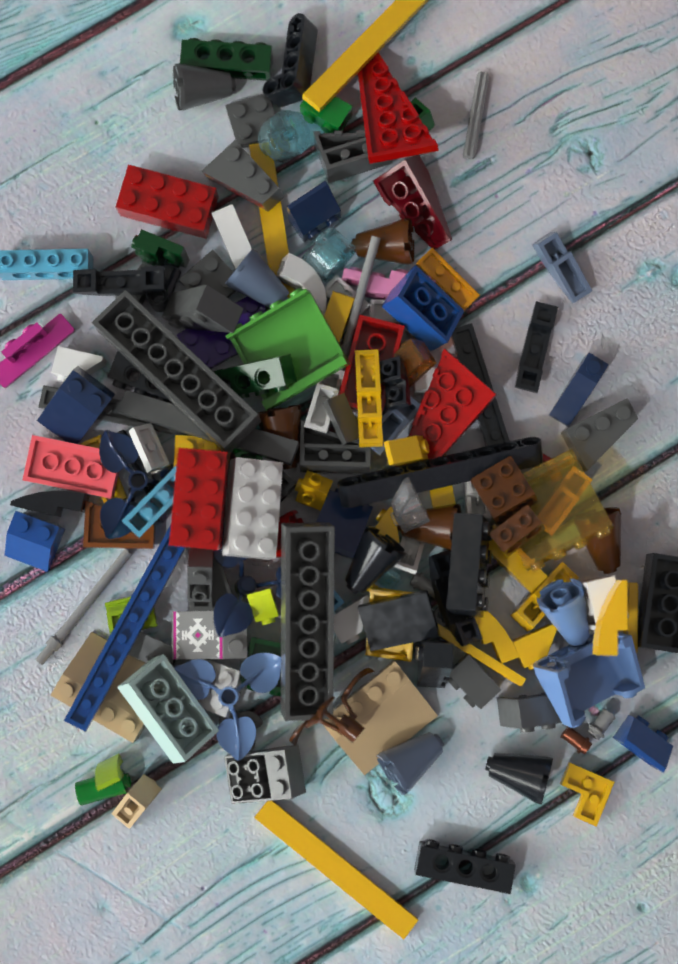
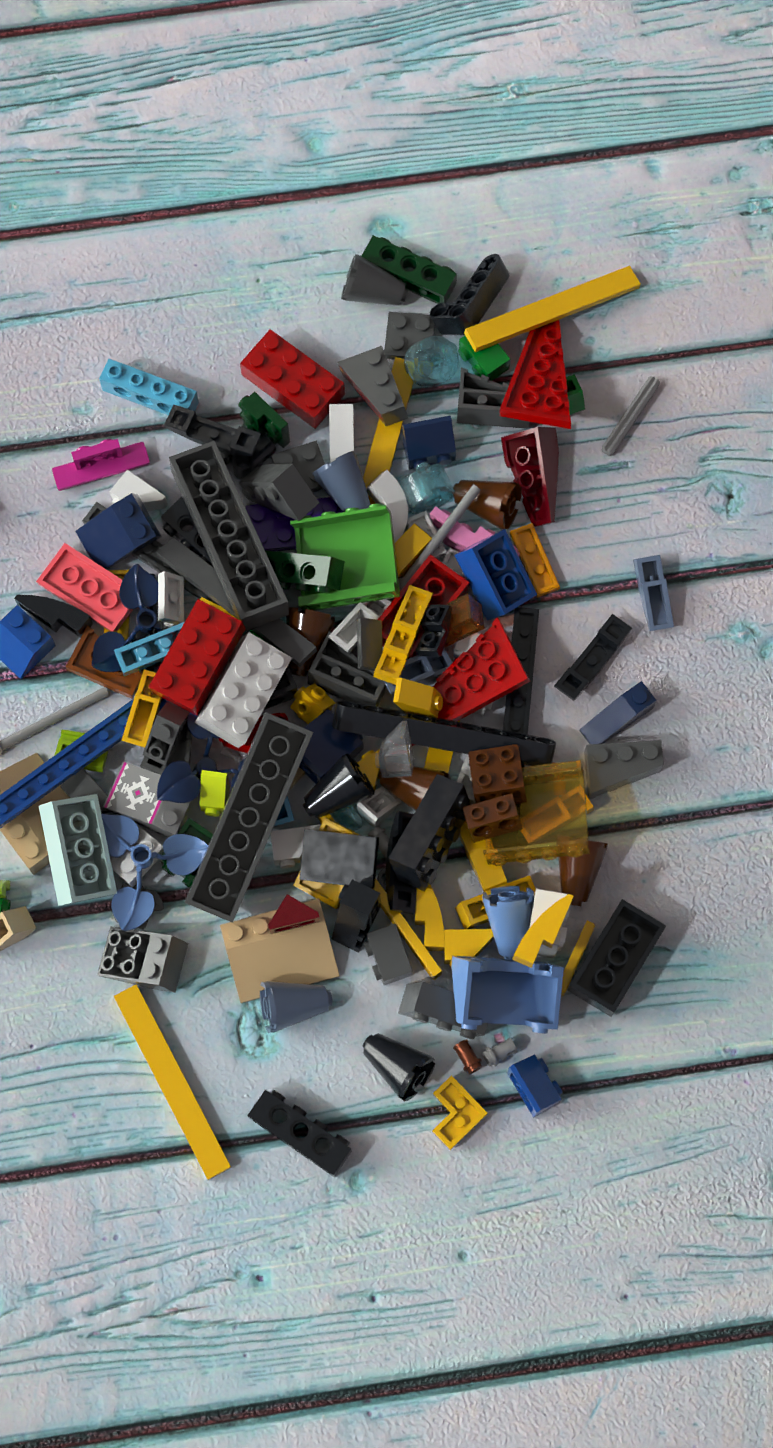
camera: 25 degrees right, 10 degrees down
(170, 562) = (142, 713): none -> yellow slope
(346, 725) = (243, 934): reddish brown plant -> none
(382, 689) = (292, 915): none -> dark red slope

